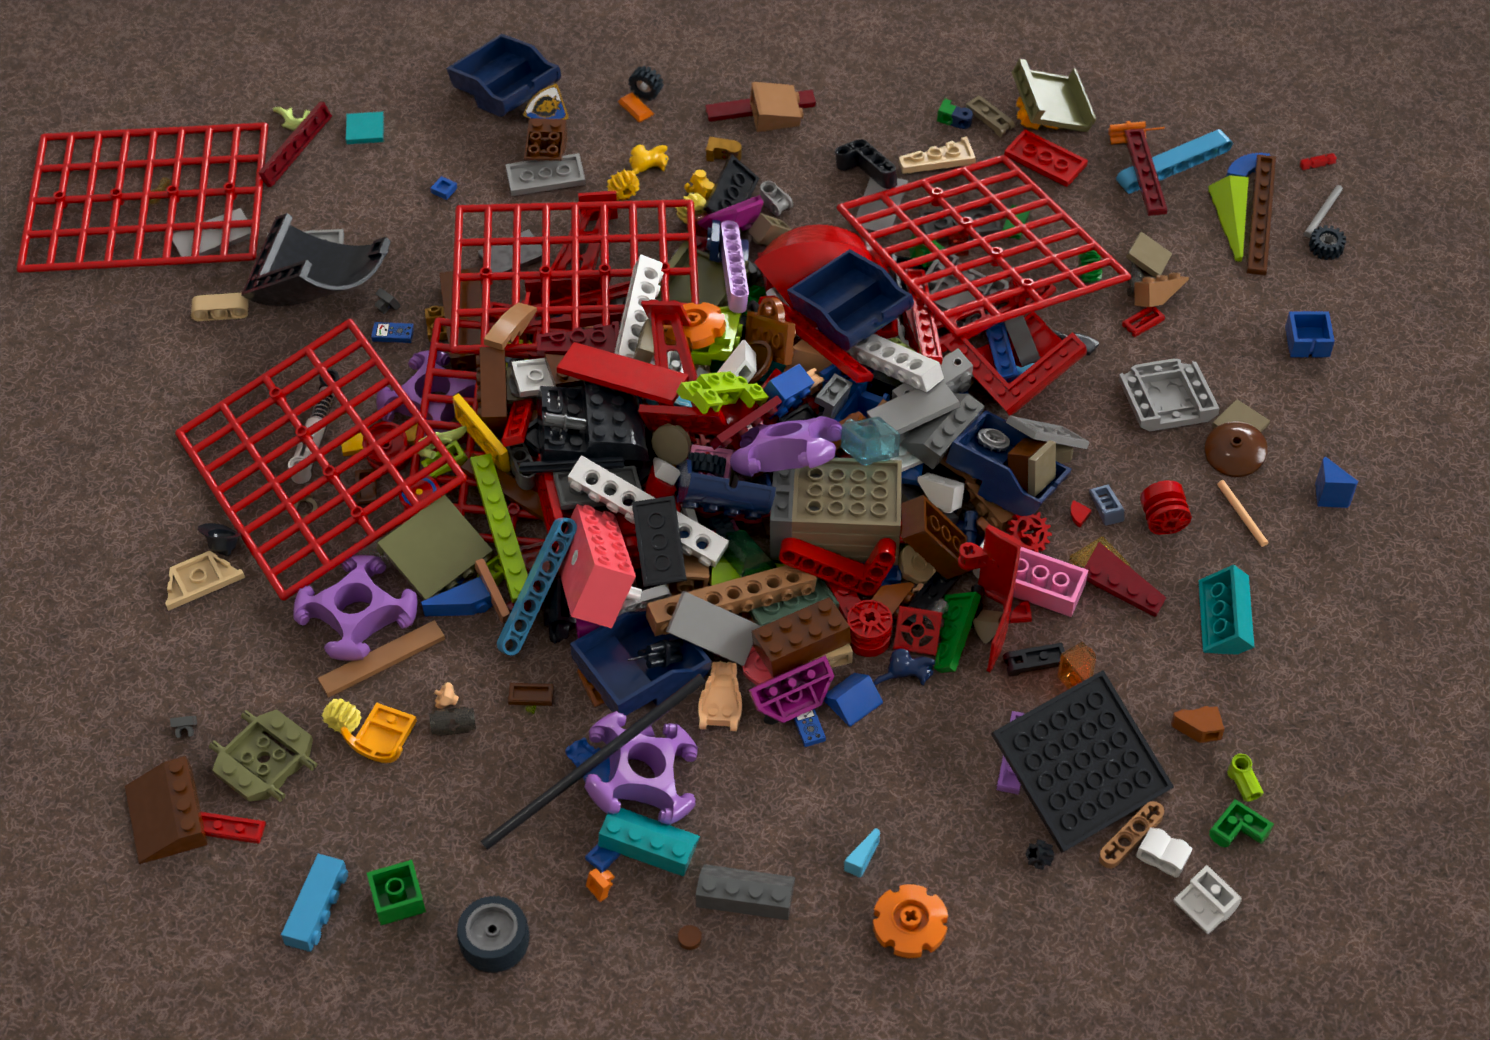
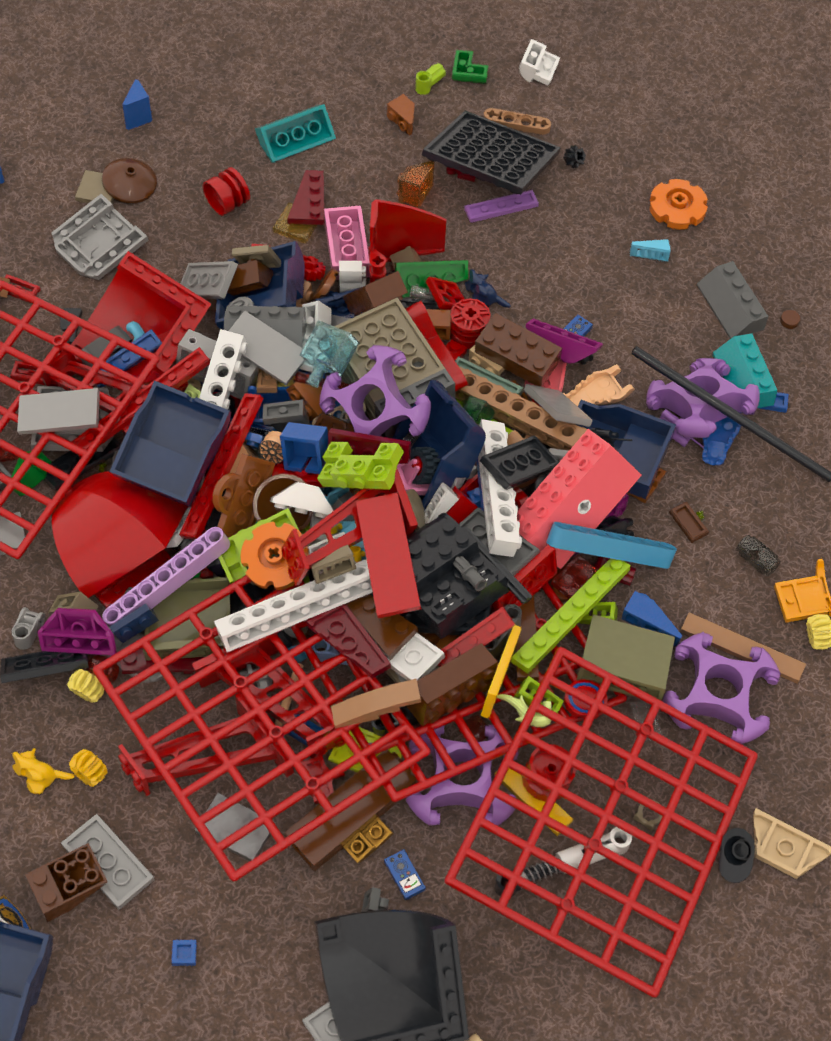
camera: 125 degrees left, 5 degrees up
(369, 493) = (586, 783): reddish brown tile -> none
(445, 696) = (741, 575): light nougat piece -> none
(496, 597) = (625, 596): nougat tile -> none
(599, 883) = (800, 386): orange tile -> none
(700, 184) = (47, 698): yellow piece -> none
(853, 698) = (526, 310): blue slope -> none
(951, 260) = (58, 411): none -> light grey tile
(1111, 515) = (237, 230): sand blue slope -> none
(1164, 852) = (519, 97): white brick -> none
(1242, 513) = (189, 159): light nougat bar -> none

